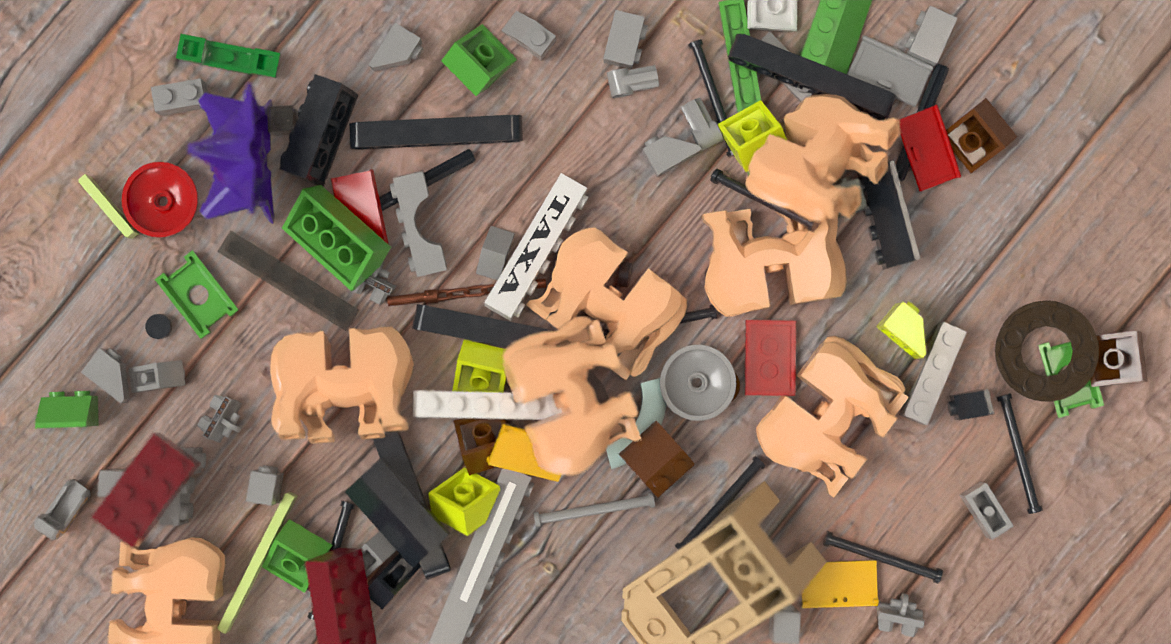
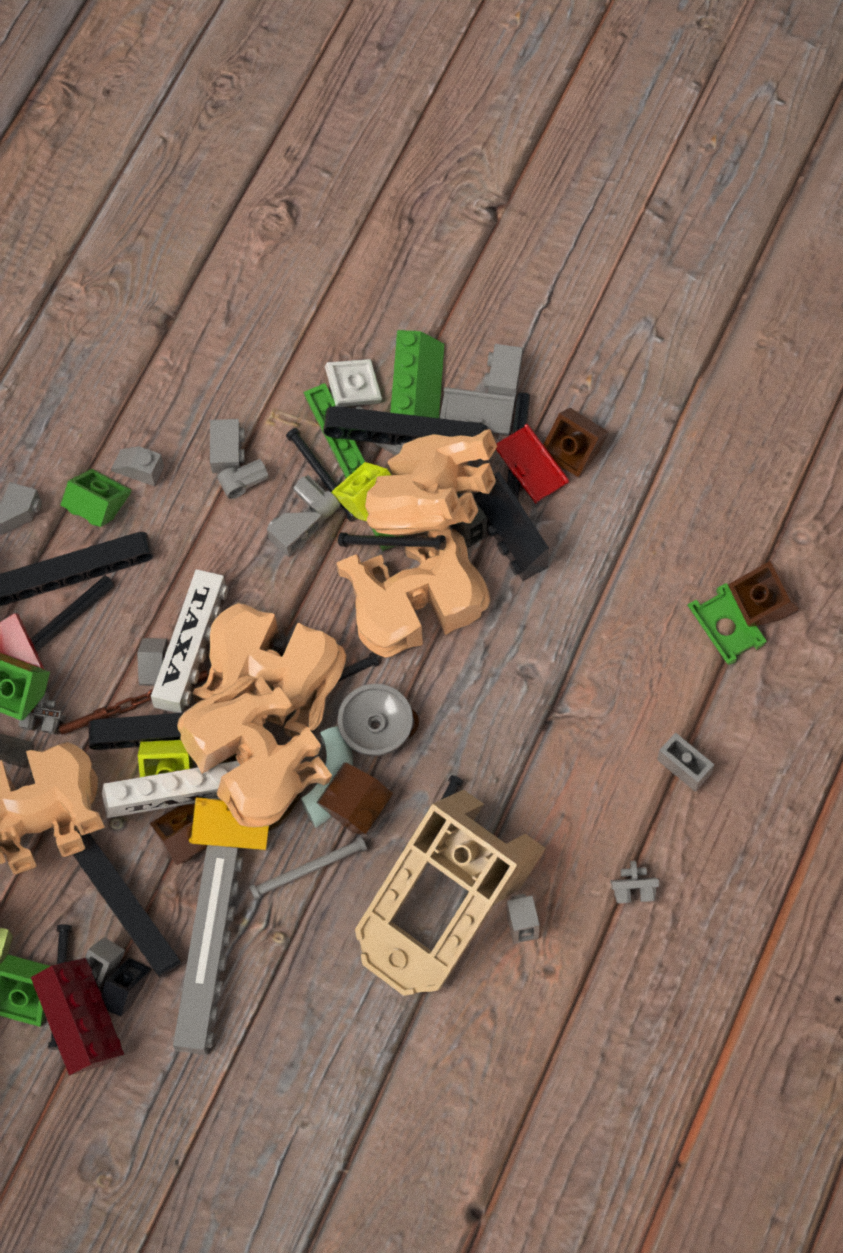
camera: 10 degrees left, 20 degrees down
(397, 512) = (113, 913): black slope -> none
(426, 255) = (86, 675): light grey arch -> none
(464, 501) = (176, 889): neon yellow slope -> none
(770, 357) = (439, 685): tile -> none
(840, 581) = (567, 868): yellow door -> none
(851, 389) = (496, 743): light nougat animal -> none
(883, 557) = (600, 836): black bar -> none
(905, 328) = (555, 620): neon yellow slope -> none
(934, 373) = (596, 655): arch -> none
(970, 404) = (640, 670): black slope -> none
(1023, 467) = (672, 662): black bar -> none
(1054, 315) = (689, 573): dark brown plate -> none

